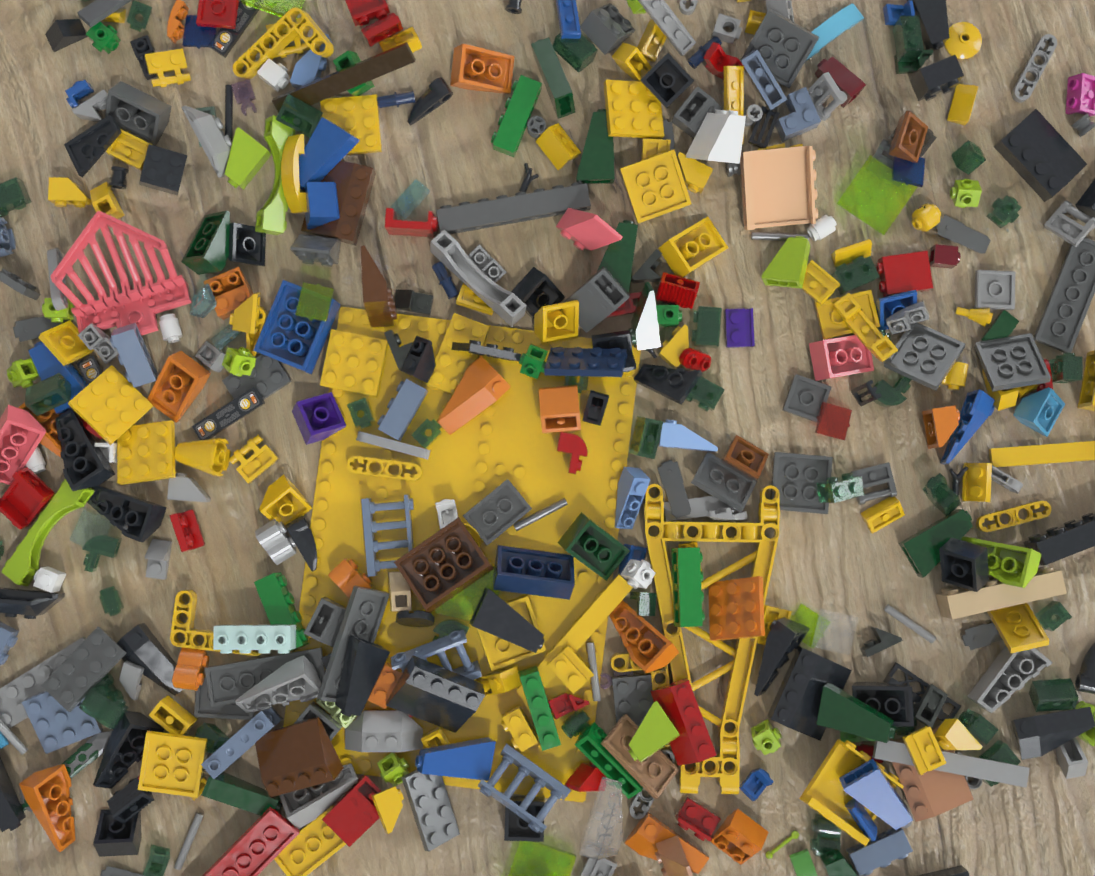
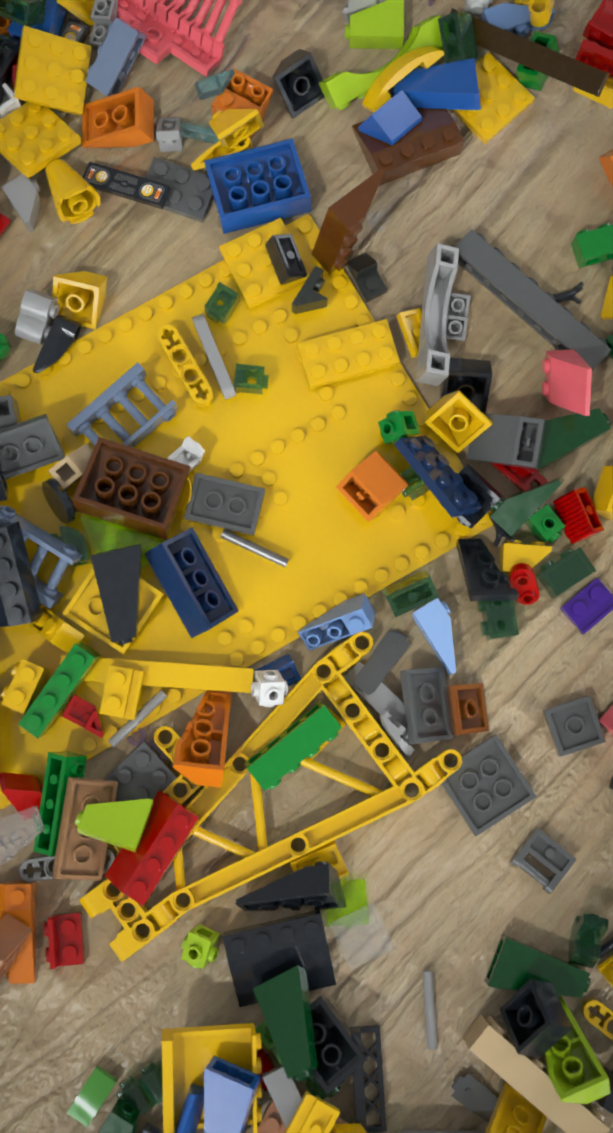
camera: 50 degrees right, 5 degrees down
(170, 328) = (167, 75): white brick -> none
(209, 245) = (271, 51): dark green slope -> none
(239, 361) = (183, 154): lime brick -> none
(257, 463) = (100, 246): yellow plate -> none
(314, 302) = (294, 180): clear neon green piece -> none
(317, 249) = (344, 148): dark grey slope -> none
(318, 417) = (186, 268): dark purple slope -> none
(347, 576) = (56, 405): orange brick -> none
(363, 348) = (285, 258): none -> black slope
(396, 99) = (545, 120): dark blue axle -> none
(402, 409) = (255, 339): sand blue brick -> none
(410, 199) = (462, 202): clear light blue slope -> none
(410, 228) = (435, 217): red panel -> none
(420, 360) = (315, 319): black slope -> none
(430, 100) = (572, 152): black piece -> none
(445, 280) = (411, 289): dark blue axle -> none
(475, 393) = (325, 394): orange wedge -> none
(489, 350) = (368, 361): wing -> none
(573, 445) = (347, 530): red brick -> none
(575, 723) = (71, 739): clear green brick -> none
(593, 546) = (262, 623): dark green slope -> none
(595, 408) = (401, 521): black slope -> none
(645, 273) = (573, 470): pearl dark grey slope -> none
(645, 603) = (245, 717): panel -> none
(736, 609) = (308, 814): orange plate -> none
(740, 837) = (78, 998): orange slope -> none
(755, 783) = (145, 972): blue bracket -> none
(794, 835) = (122, 1055): lime hinge -> none
(833, 421) = (572, 770): clear red piece -> none
(840, 488) = (511, 829): clear green brick -> none
(882, 514) = (519, 894): yellow slope -> none
(884, 641) = (391, 995): pearl dark grey slope -> none
(930, 705) = (361, 1096): pearl dark grey slope -> none

